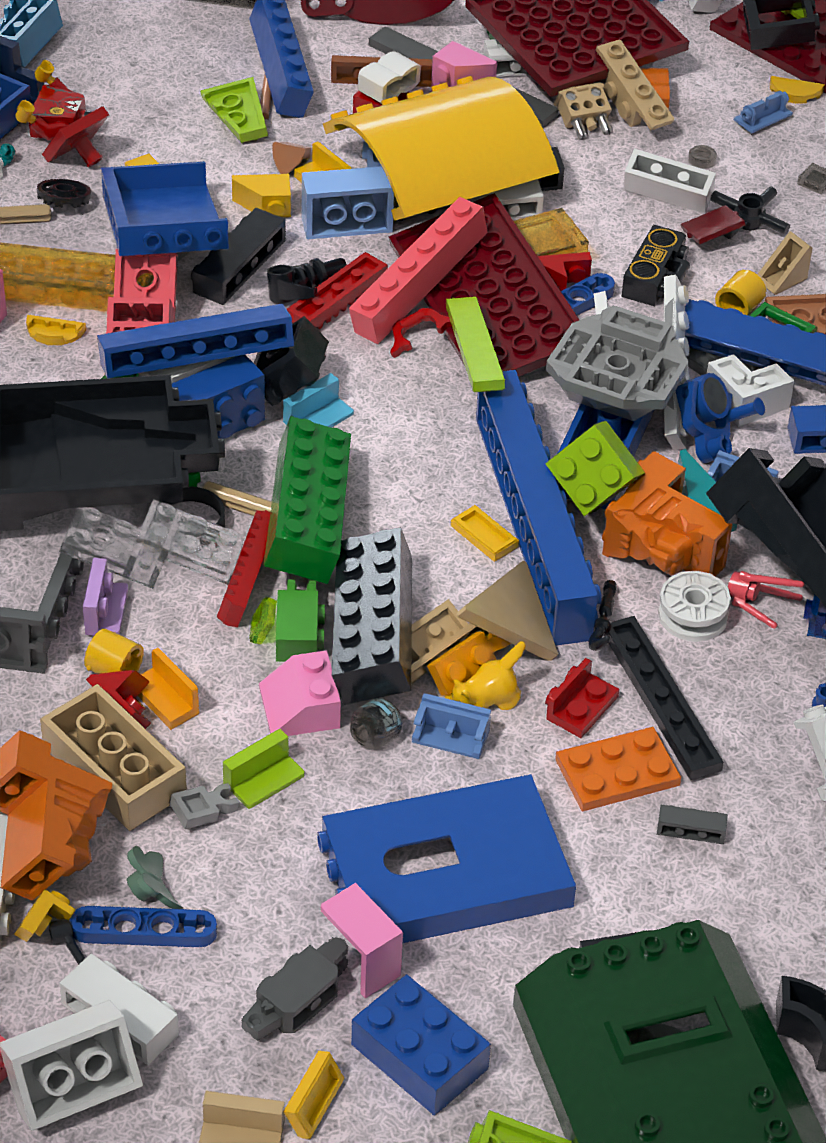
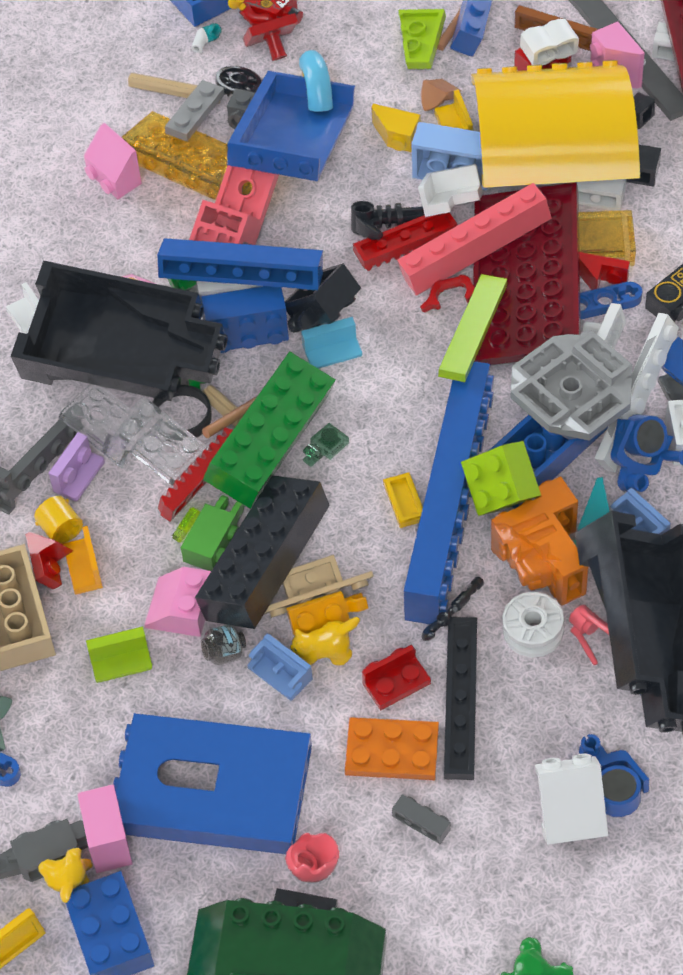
camera: 30 degrees right, 10 degrees up
(34, 227) = (194, 110): none -> light grey plate
(54, 331) = (167, 209): yellow tile -> none
(87, 215) = (237, 106): none -> dark grey brick
(165, 161) = (317, 81): none -> medium azure cylinder
(201, 807) = (56, 669): light grey plate -> none
(249, 248) = (344, 181): black brick -> none
(255, 500) = (227, 419): none -> nougat bar
(347, 996) = (66, 873): none -> yellow animal
(363, 231) = (448, 188): none -> white panel
(366, 503) = (325, 443): none -> clear green plate
(513, 612) = (372, 584): tan tile -> none
(606, 894) = (312, 857): none -> coral hair

